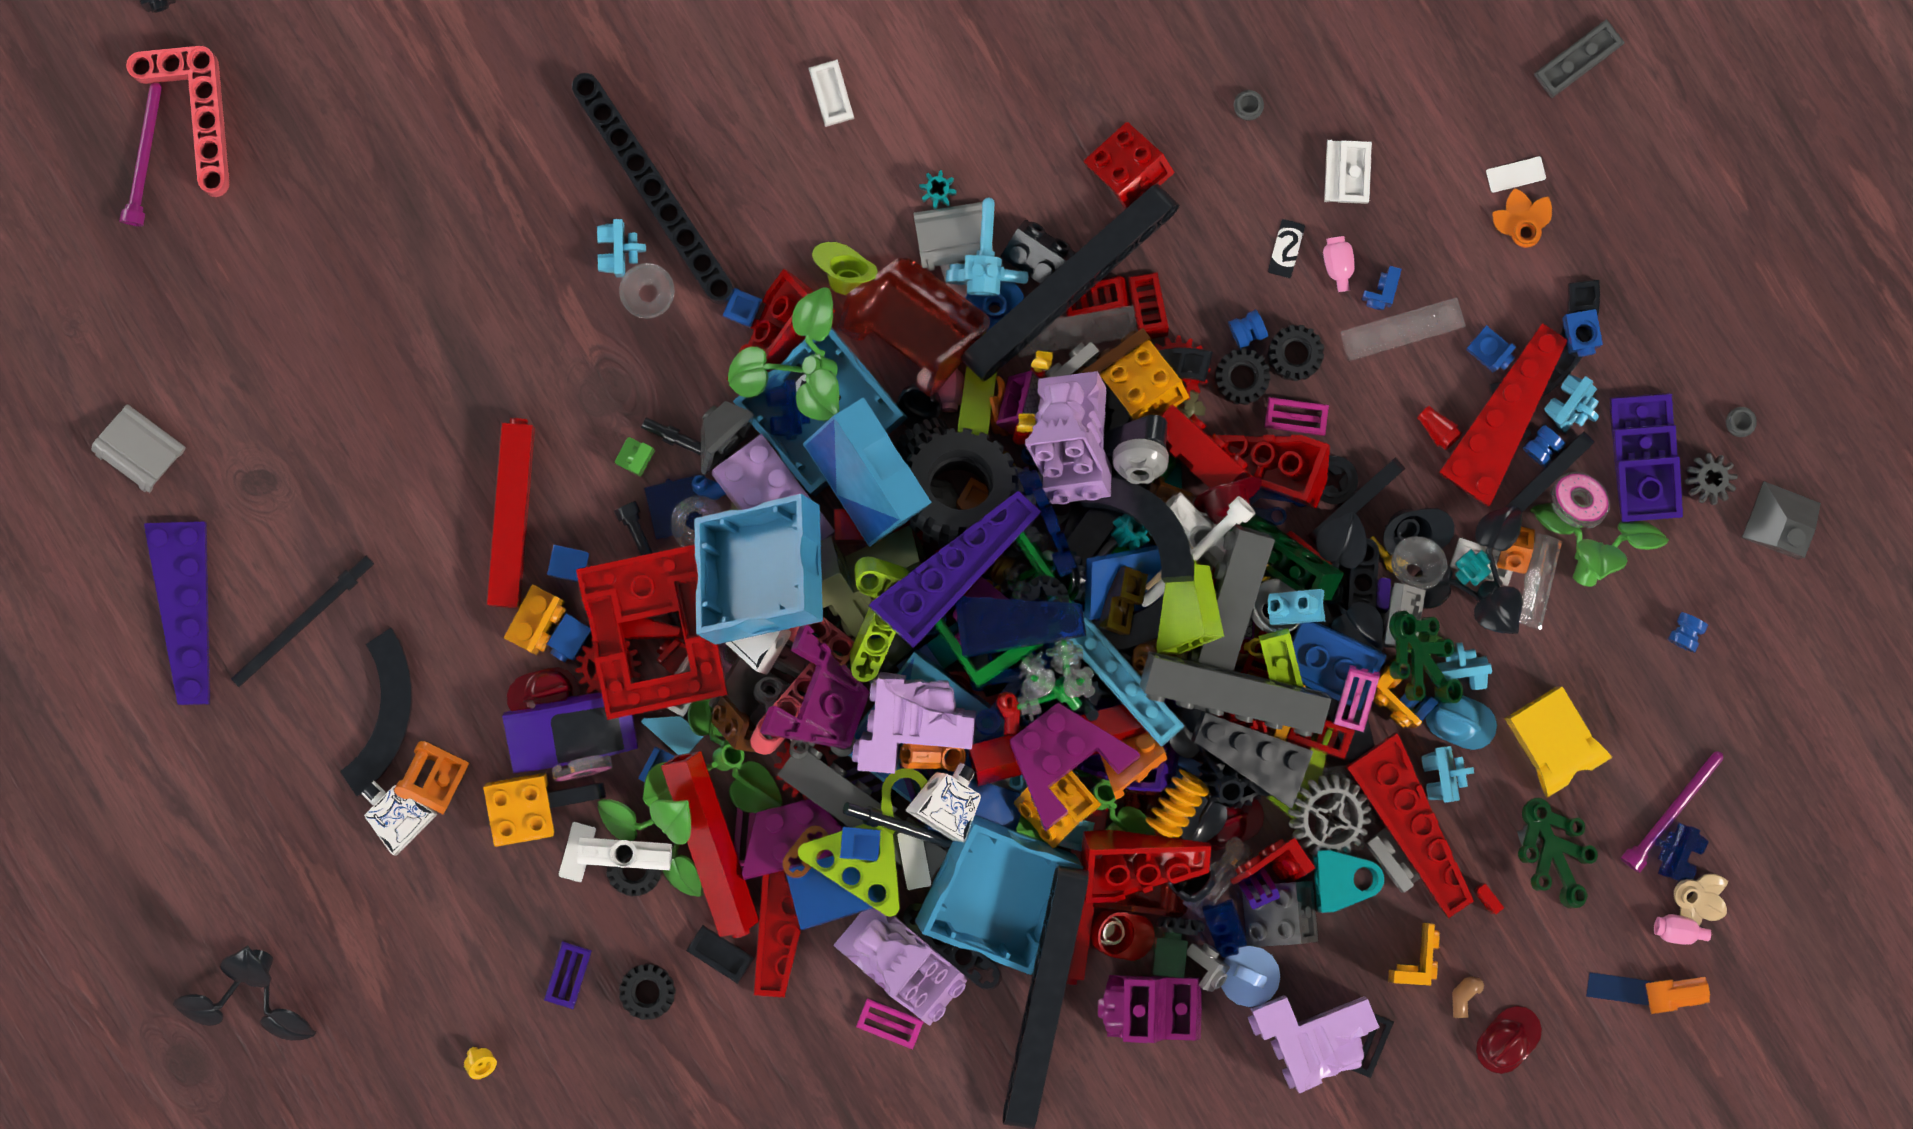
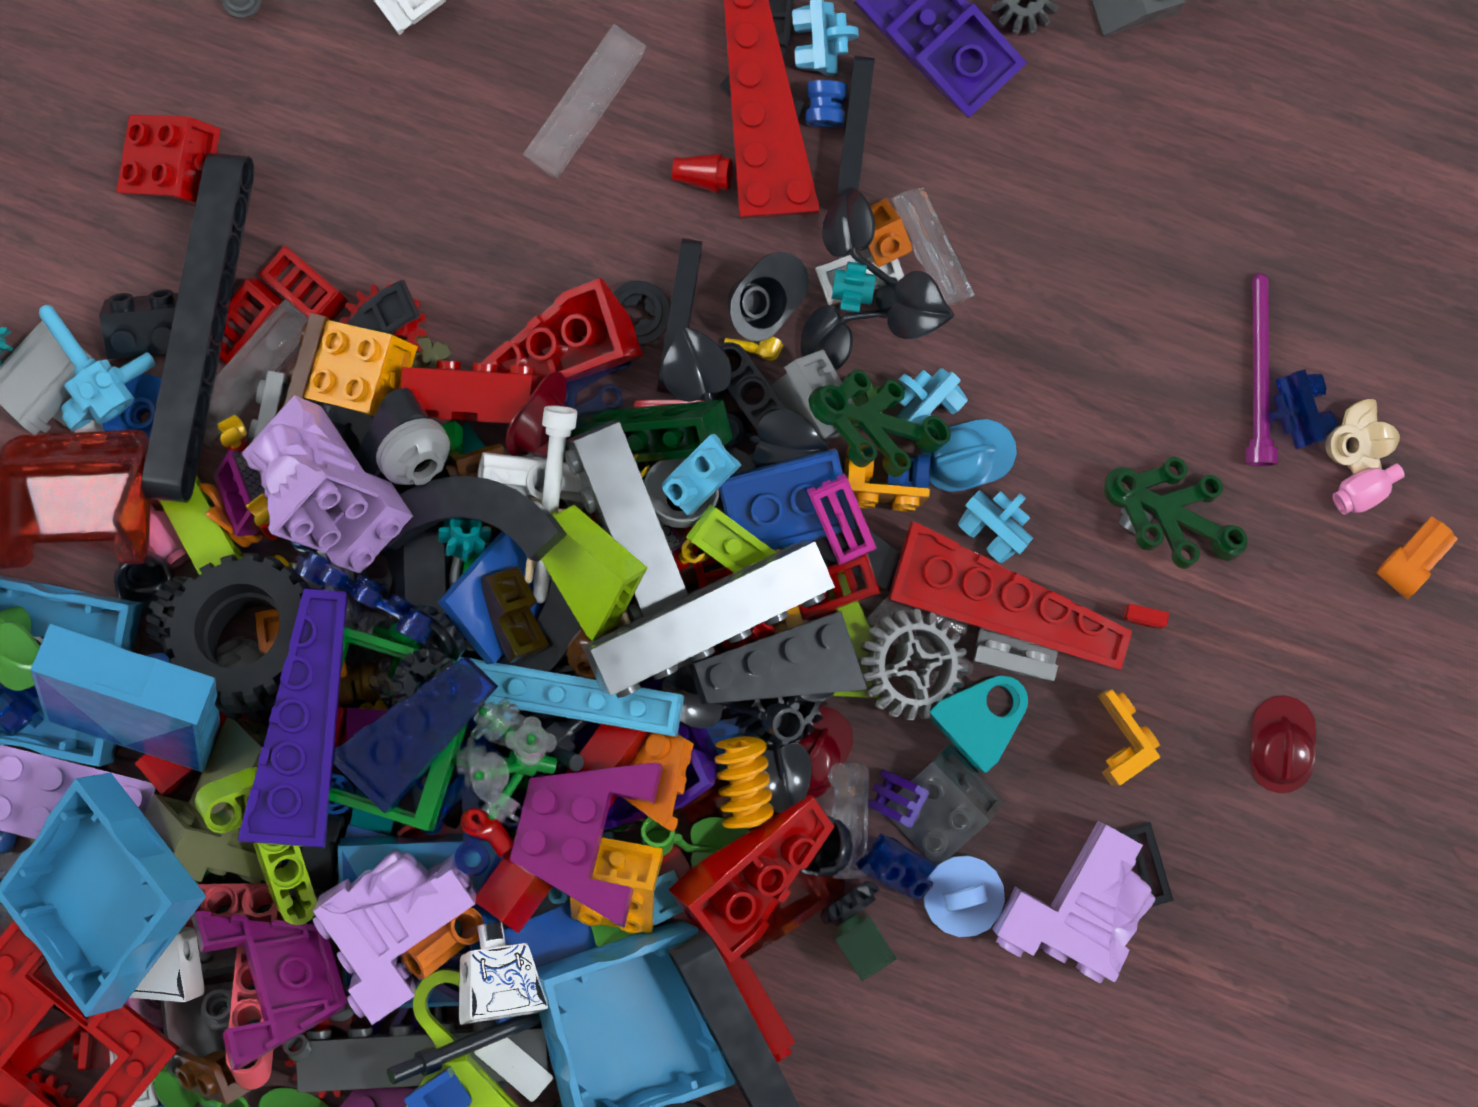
camera: 35 degrees left, 0 degrees up
(1122, 934) = (798, 961): red cap -> none
(1152, 1008) = (890, 1016): magenta brick -> none
(1208, 958) = (905, 914): light grey bracket -> none
(1242, 395) = (451, 258): black tyre -> none
(1248, 329) = (424, 228): blue wheel -> none
(1283, 366) = (479, 193): black tyre -> none
(1286, 248) = (399, 114): sticker -> none
(1288, 860) = (907, 744): red bracket -> none
(1299, 417) = (553, 293): dark pink tile -> none
(1339, 261) = (463, 83): bright pink plant -> none
(1383, 595) = (783, 389): dark purple tile -> none
(1388, 285) = (532, 68): blue bracket -> none
(1424, 554) = (791, 314): clear piece -> none
(1463, 993) = (1198, 734): medium nougat arm -> none
(1491, 350) = (693, 49): blue bracket -> none
(1556, 739) = (1082, 396): yellow piece -> none
(1589, 490) = (907, 113): tile -> none
(1595, 558) = (967, 174): bright green plant -> none
(1617, 988) = (1351, 600): dark blue sticker -> none
(1686, 634) = (1128, 181): blue wheel -> none

